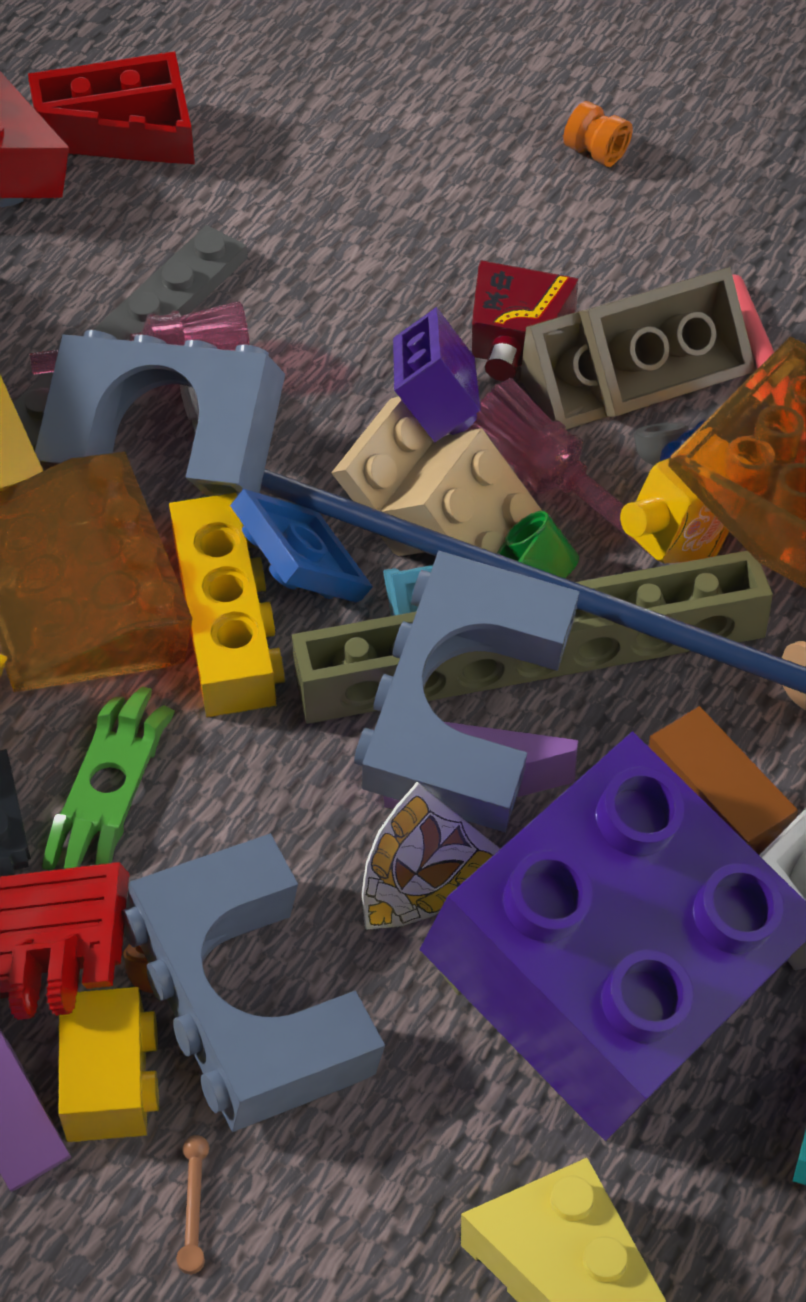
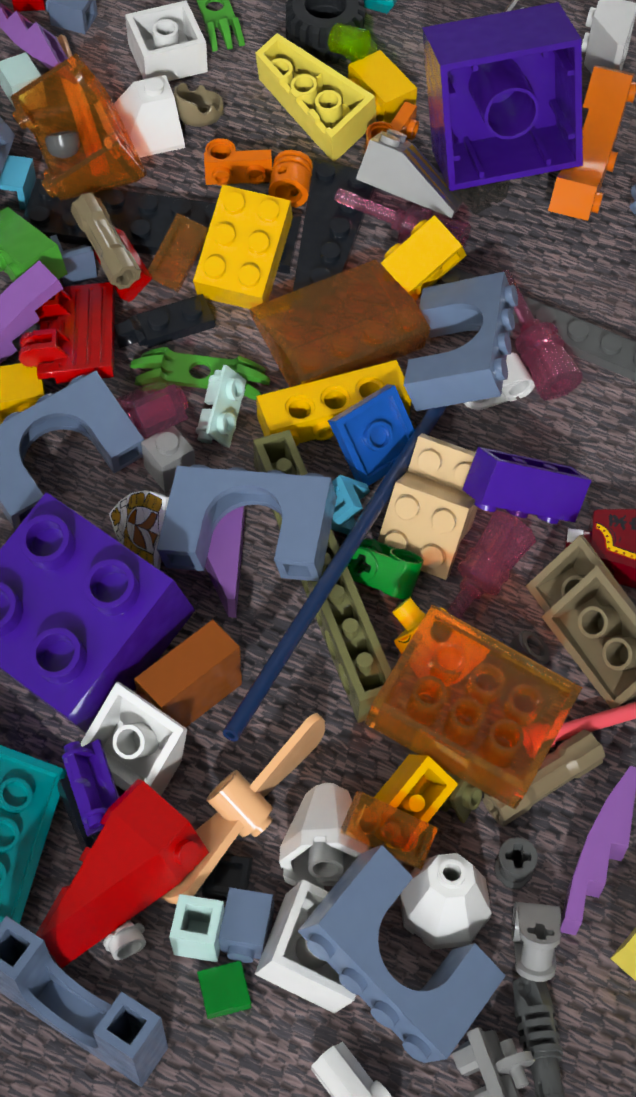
camera: 80 degrees right, 5 degrees up
(175, 736) = (225, 394): none -> light aqua hinge
(203, 813) = (155, 407): none -> clear pink brick
(292, 816) = (164, 453): none -> light grey brick

